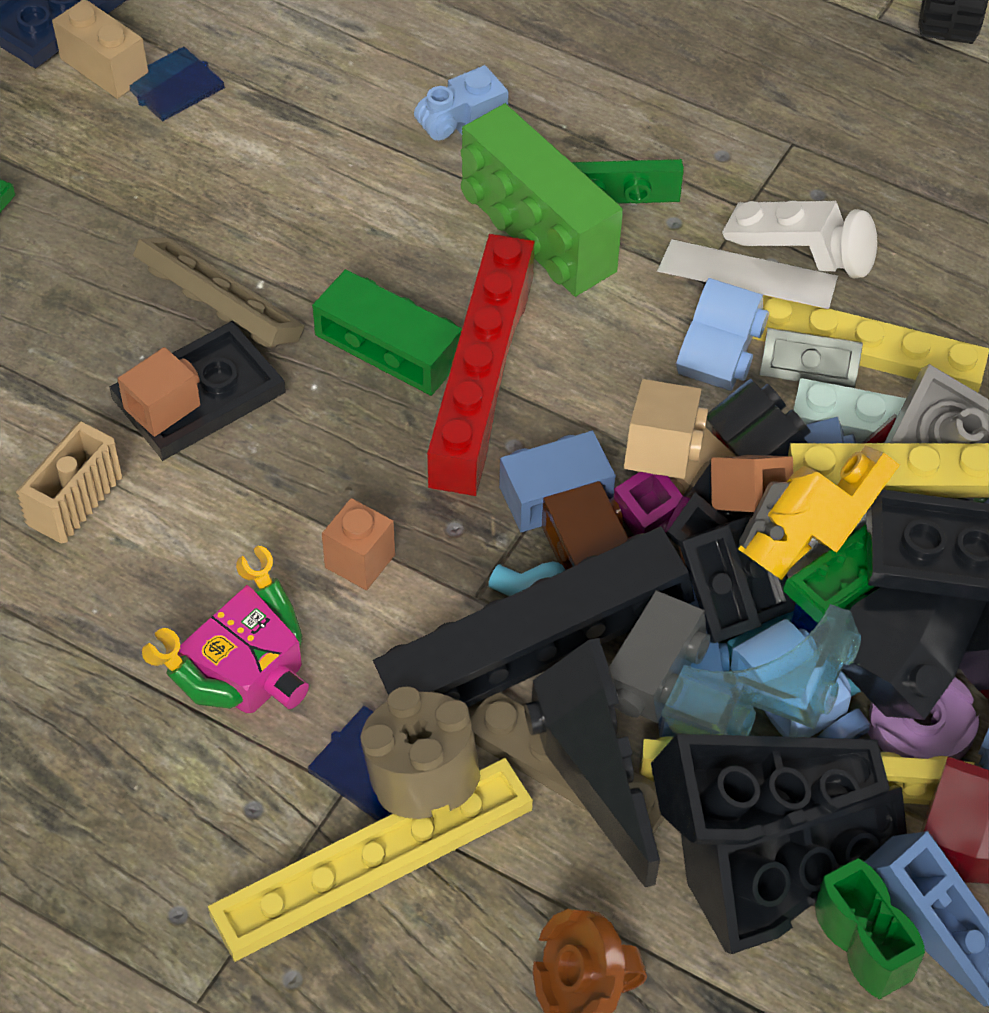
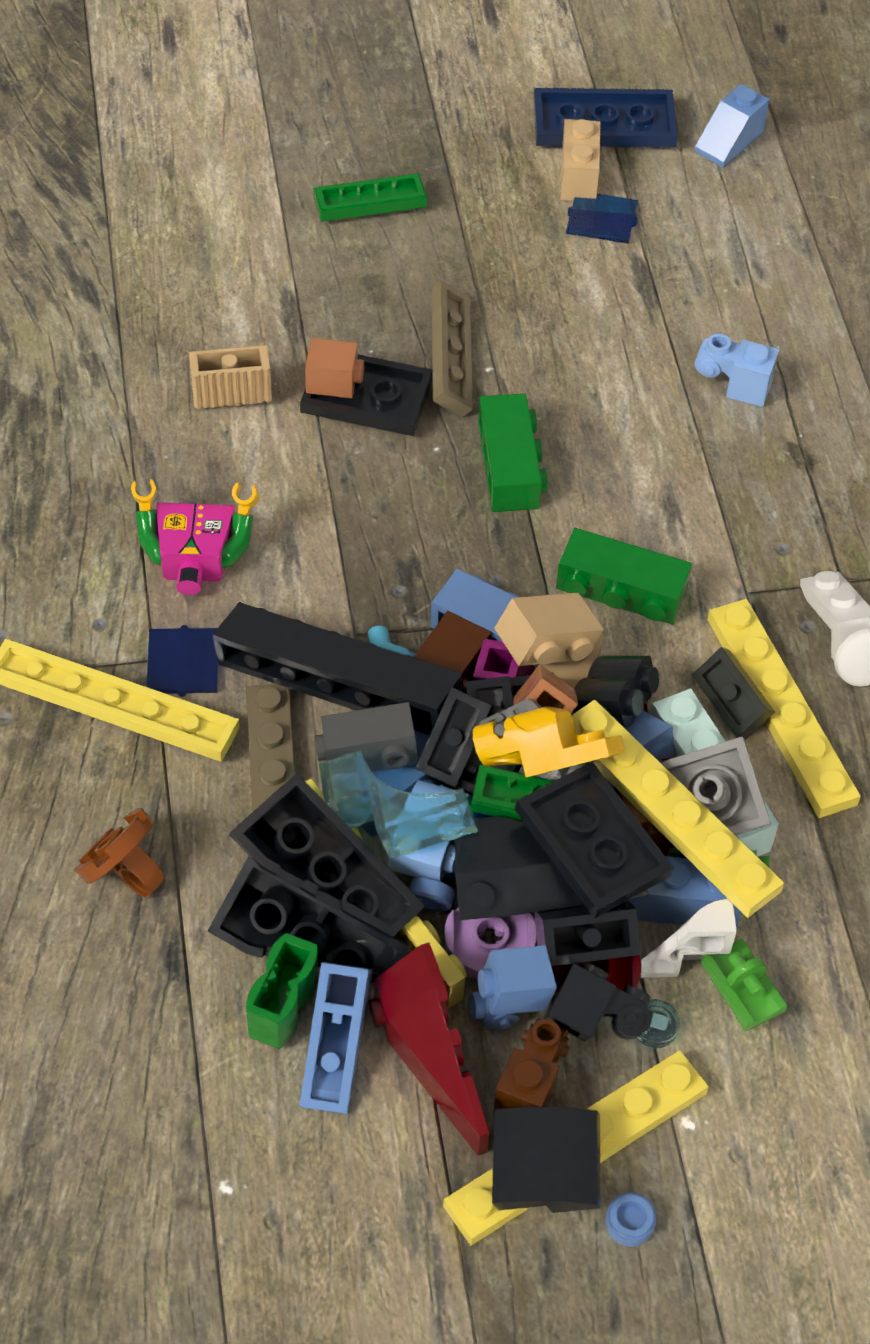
camera: 50 degrees right, 0 degrees up
(358, 544) = (326, 544): nougat brick -> none
(420, 753) = (191, 667): dark tan brick -> none
(472, 389) = (473, 534): red arch -> none
(541, 198) = (693, 454): bright green brick -> none
(578, 732) = (272, 754): black wedge -> none
(611, 346) = (623, 576): none -> green brick
(637, 179) = (770, 489): green plate -> none
(721, 334) = (693, 626): light blue brick -> none
(749, 273) = (774, 615): white sticker -> none

